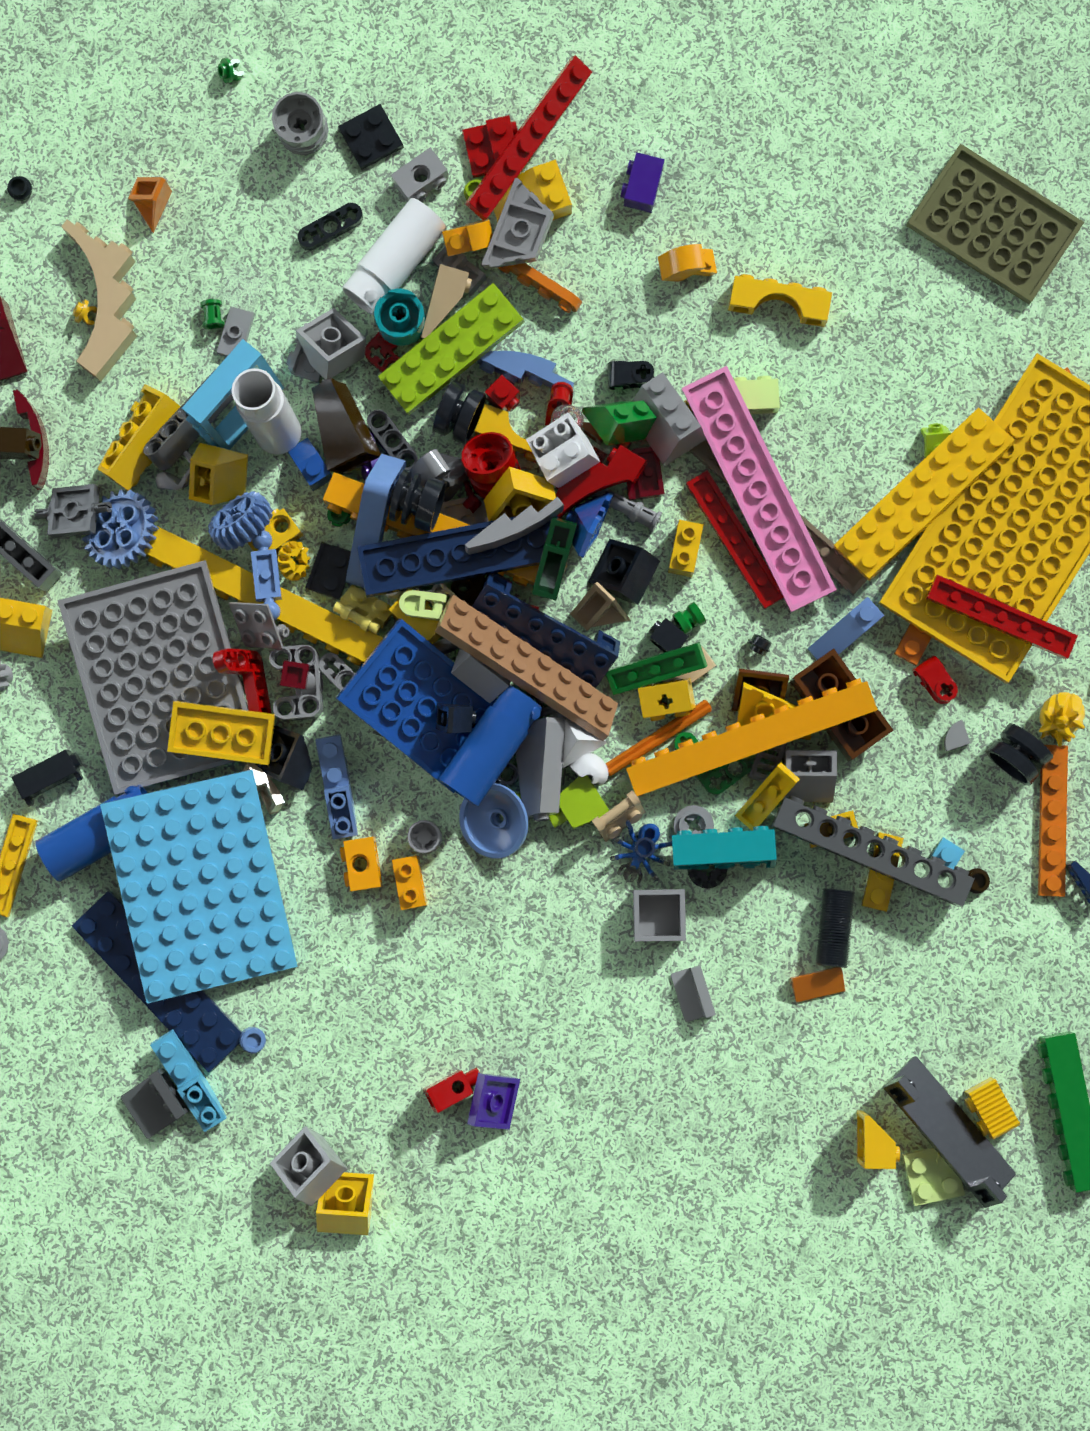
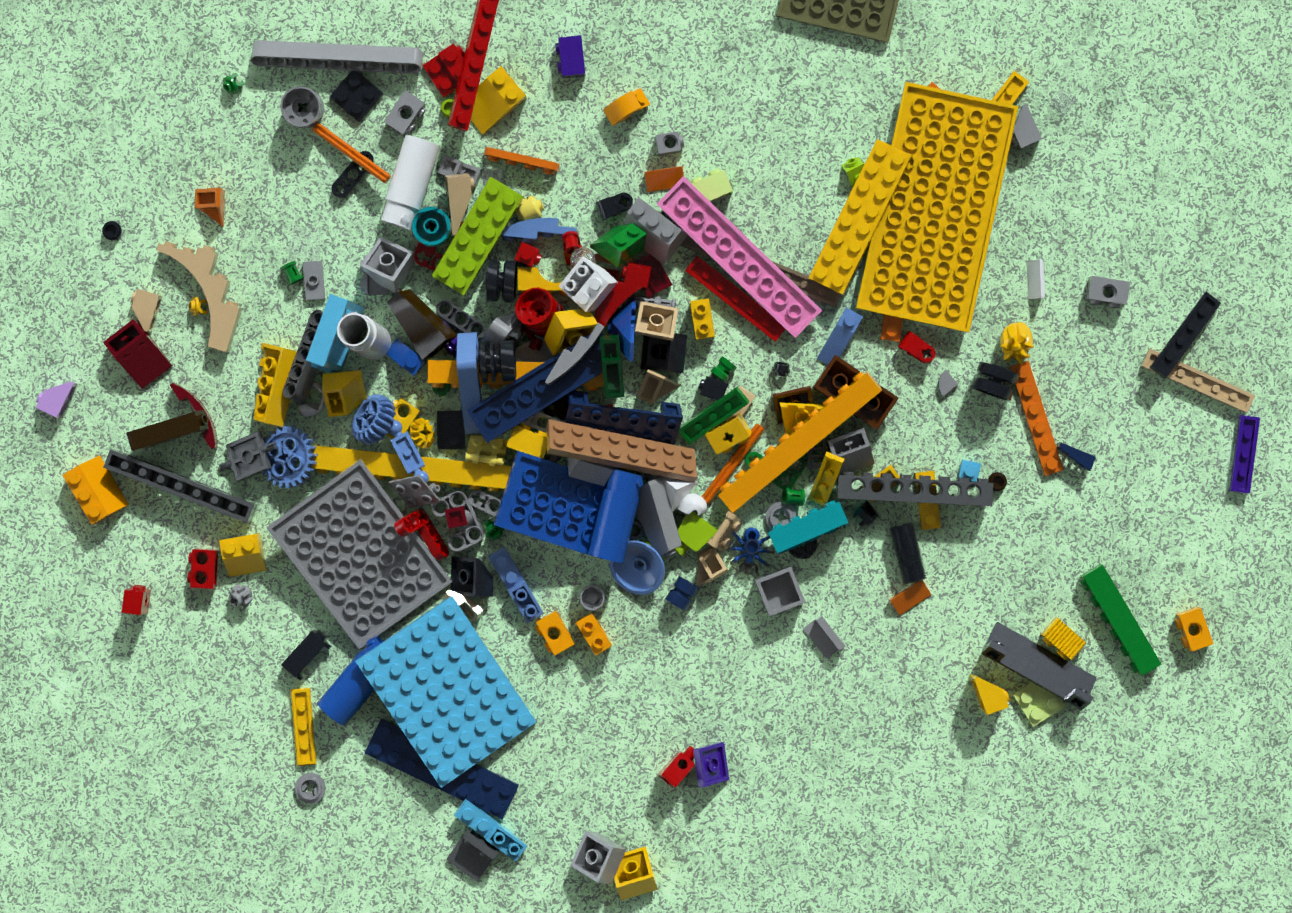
camera: 25 degrees left, 5 degrees up
(22, 292) = (146, 308): none -> tan slope
(221, 732) = (419, 577): yellow plate -> none
(252, 1040) = (524, 785): medium blue tile -> none
(335, 712) = (493, 532): none -> green plate
(338, 199) = (350, 152): none -> orange axle
(364, 82) = (336, 56): none -> light grey beam
(413, 604) = (522, 436): yellowish green plate -> none
(455, 718) = (583, 507): black slope -> none
(468, 237) = (462, 146): light orange brick -> none
(519, 229) = (494, 129): light grey wing -> none
(526, 341) = (529, 209): none -> light yellow head
(537, 874) = (682, 593): none -> dark blue wheel
(583, 852) = (709, 566): none -> tan slope
(629, 526) = (656, 320): none -> tan slope
(698, 364) = (663, 178): none -> orange slope
(717, 316) = (660, 141): none -> light grey brick
(718, 805) = (793, 496): none -> green bush
(801, 859) = (867, 513): none -> black tile
(810, 304) = (728, 104): yellow arch -> none
(1001, 617) = (947, 287): red plate -> none

